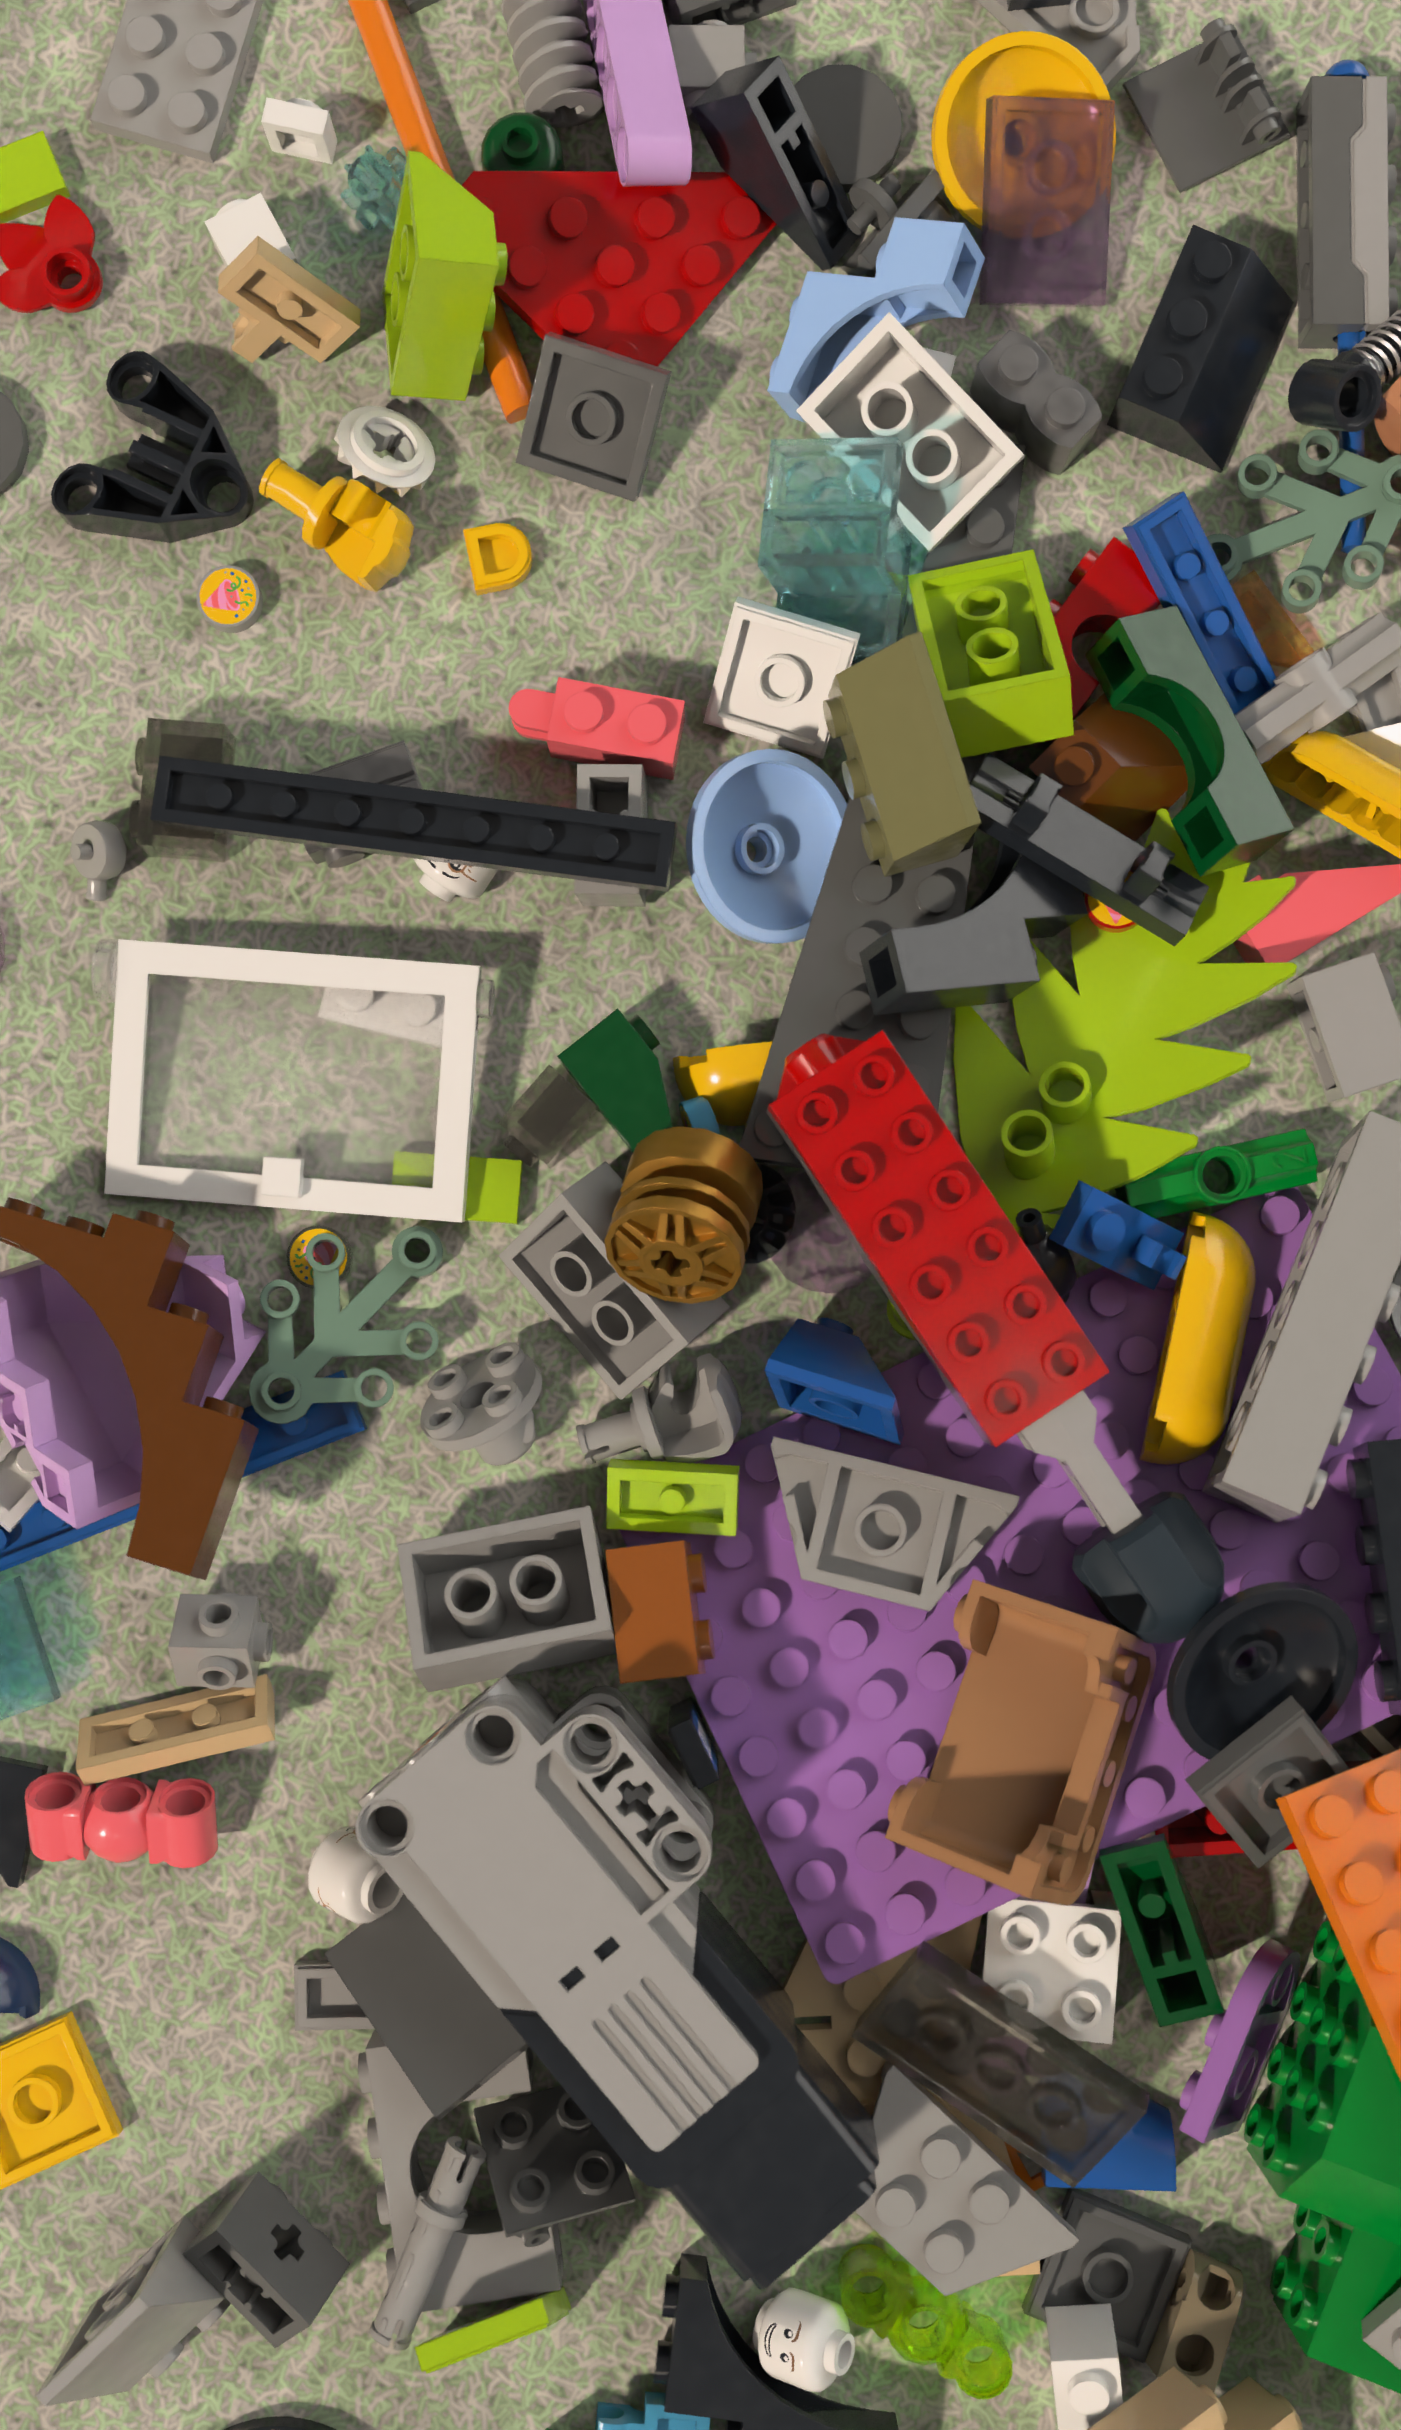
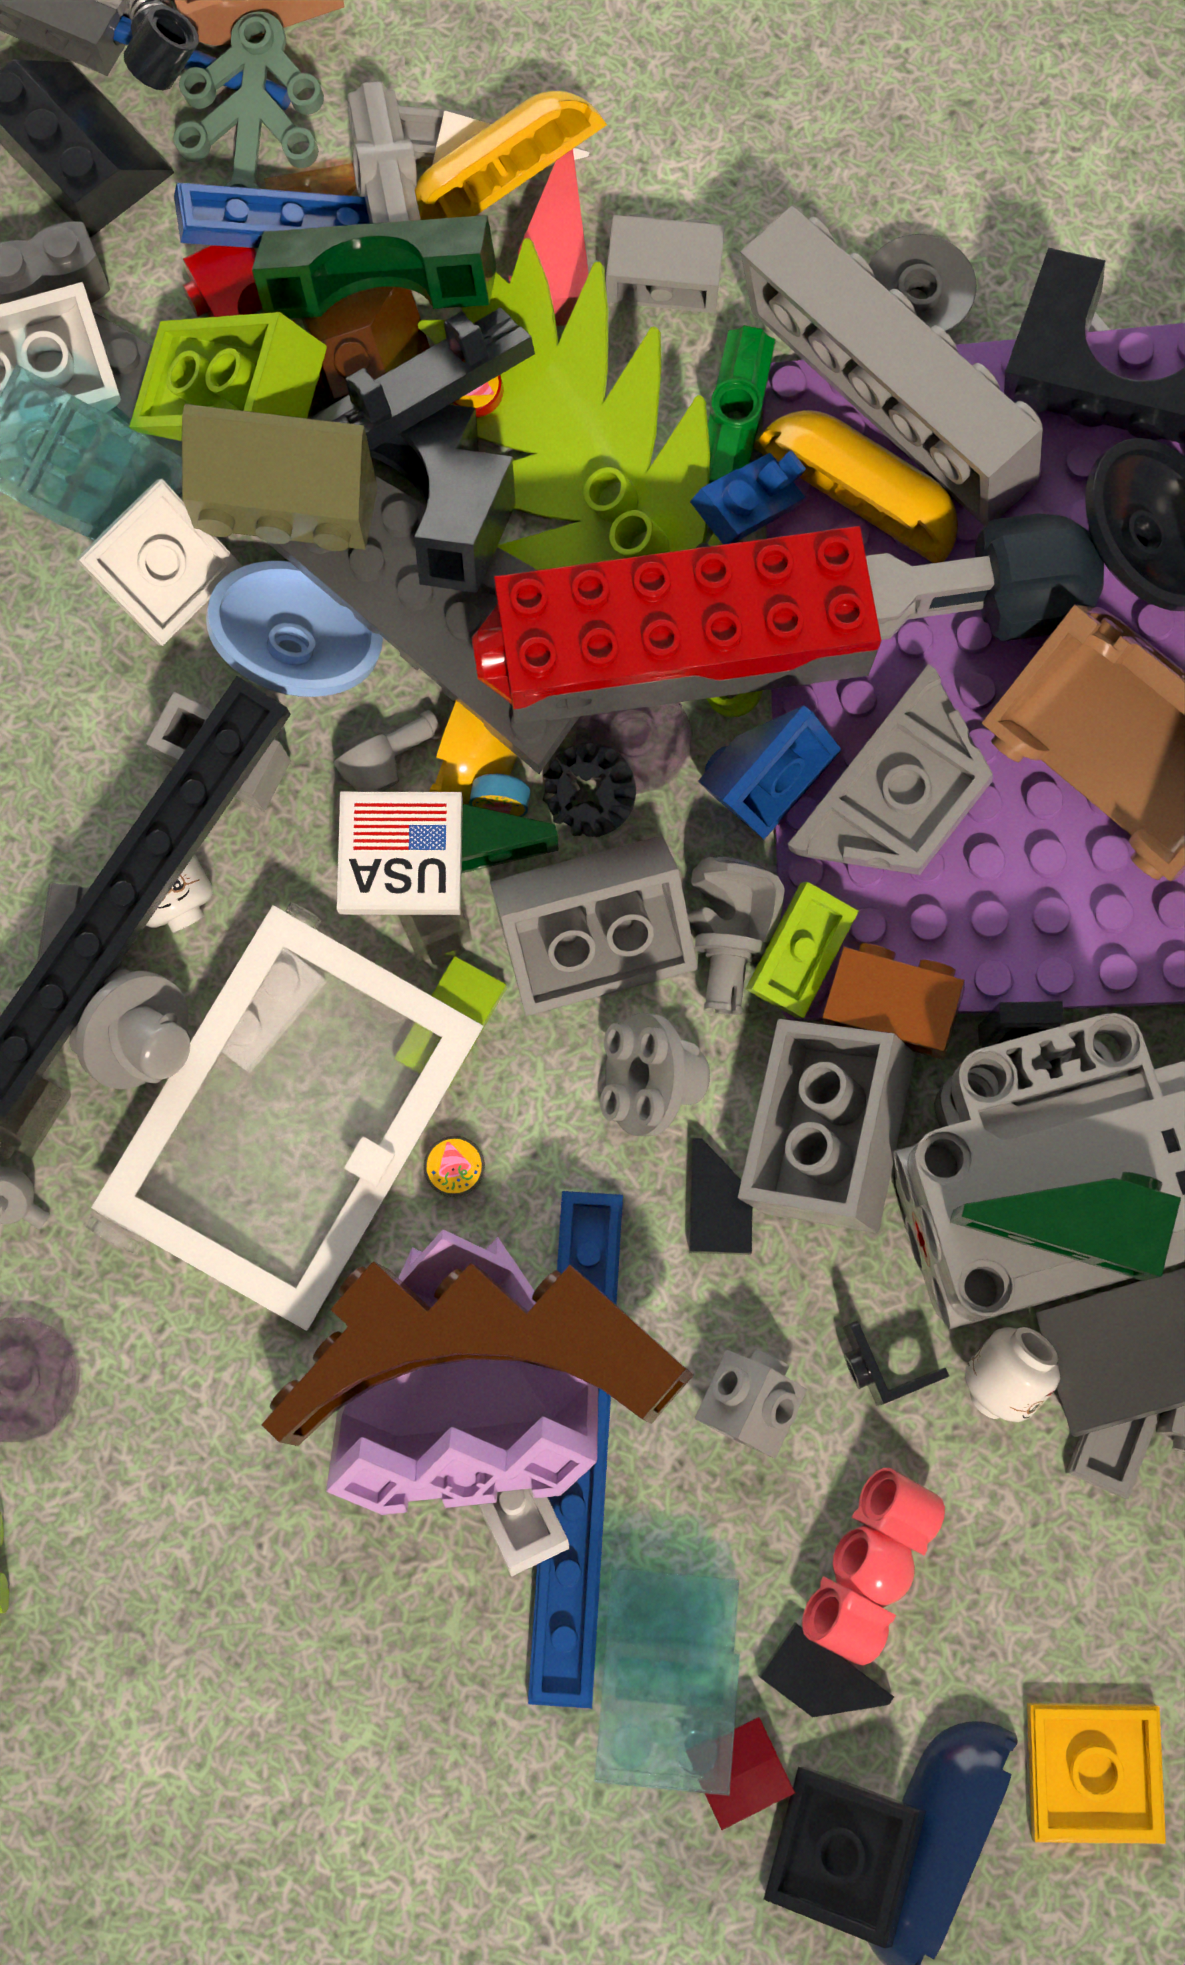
camera: 60 degrees left, 10 degrees down
(174, 1731) = (814, 1483): tan plate -> none
(293, 1771) = (866, 1371): none -> black bracket
(298, 896) = (133, 1030): none -> light grey plate
(339, 1332) = (528, 1174): sand green plant -> none
(394, 1521) = (717, 1216): none -> black tile
(482, 1902) = (1103, 1223): none -> dark green slope
(584, 1064) = (400, 853): none -> white tile
(603, 725) = (119, 719): coral brick -> none
(674, 992) = (373, 764): none -> light grey bar
(684, 1215) = (569, 819): pearl gold wheel -> none

